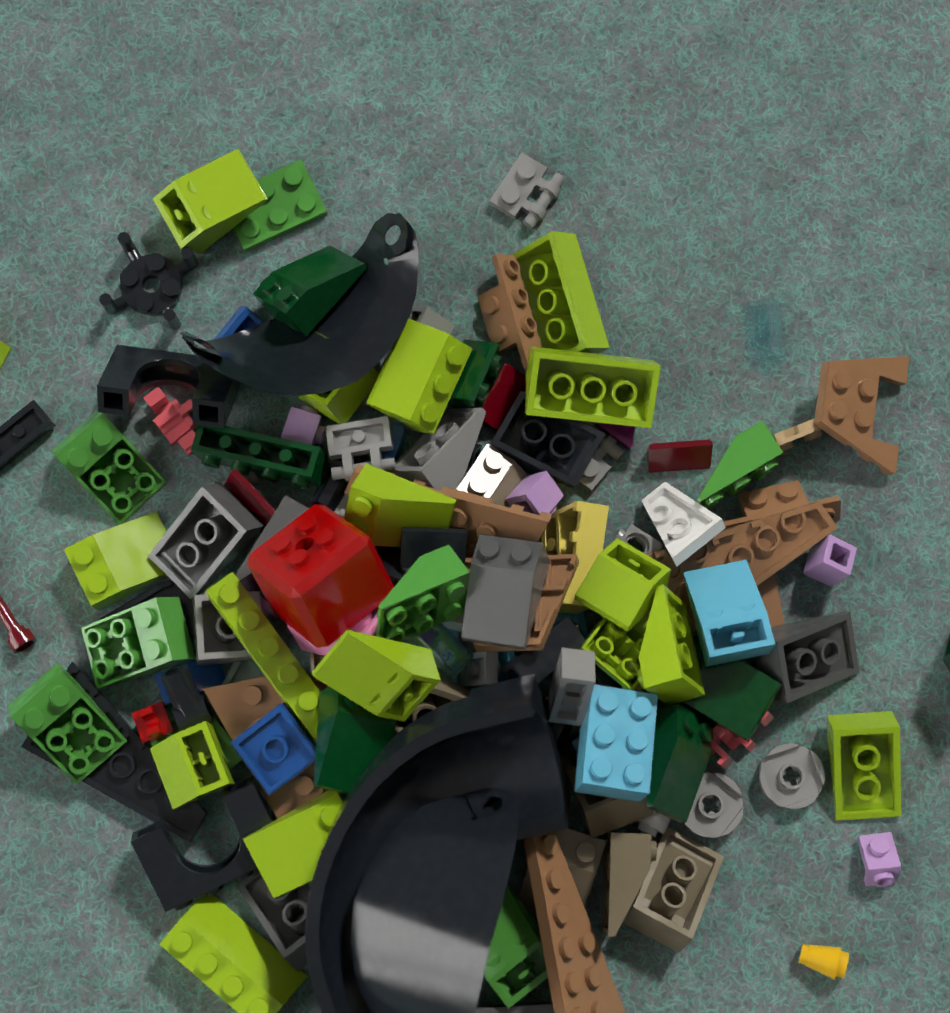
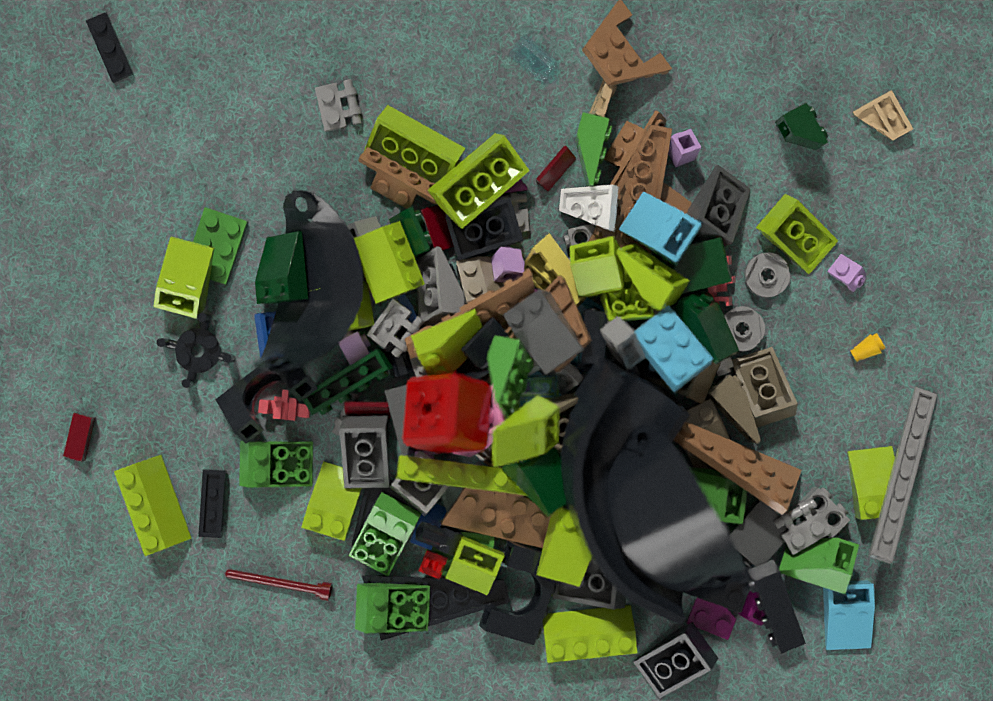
camera: 45 degrees left, 10 degrees up
(275, 748) = (508, 516): blue plate -> none

